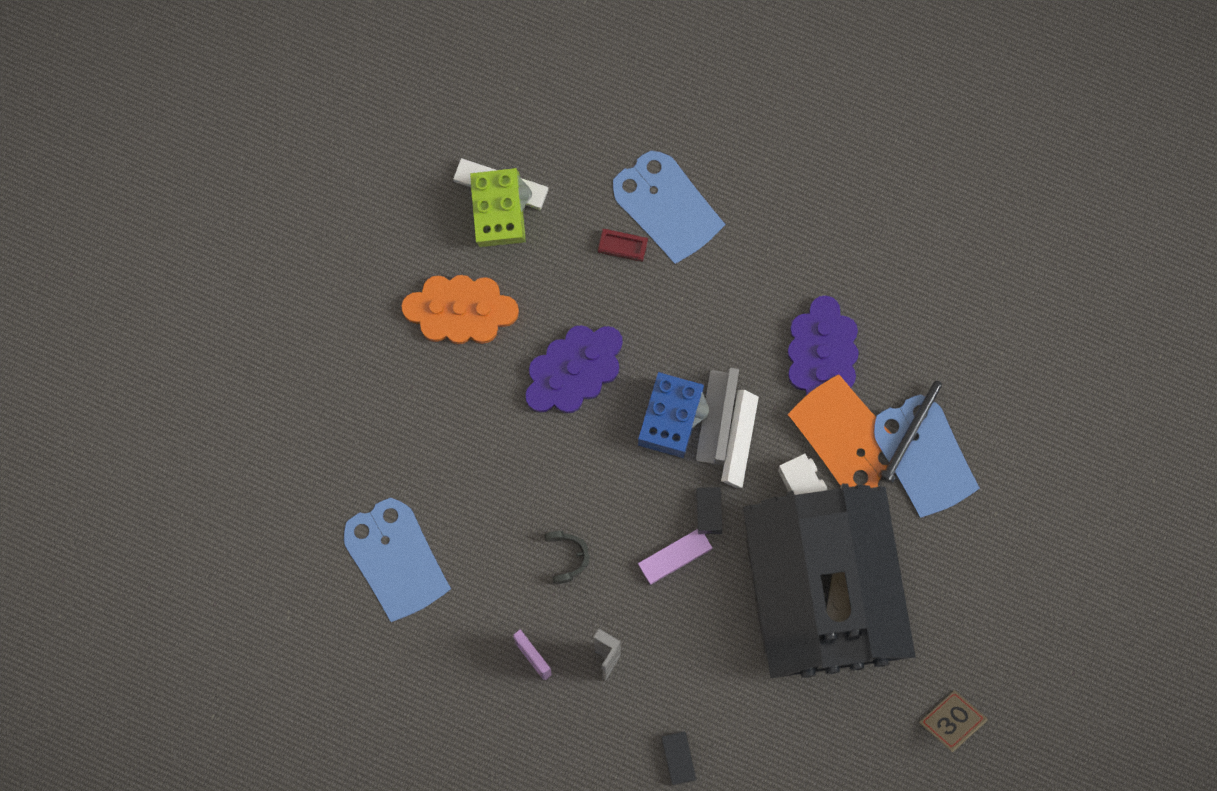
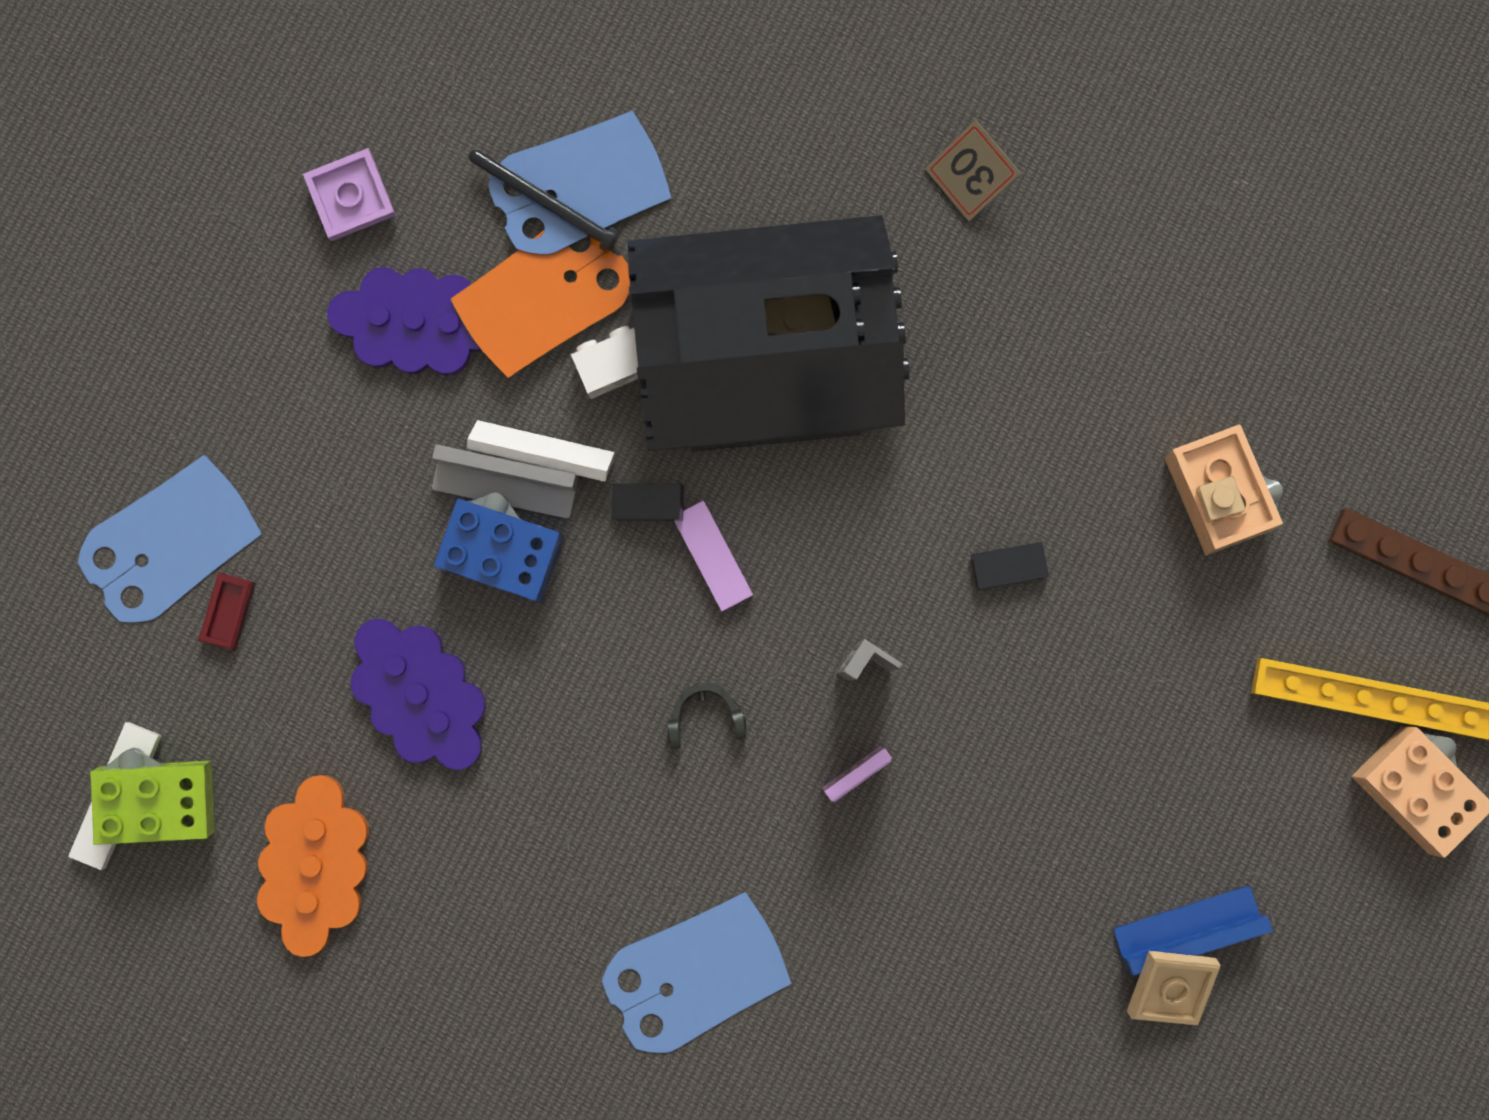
camera: 85 degrees left, 10 degrees up
(905, 305) = (349, 194): none -> lavender plate

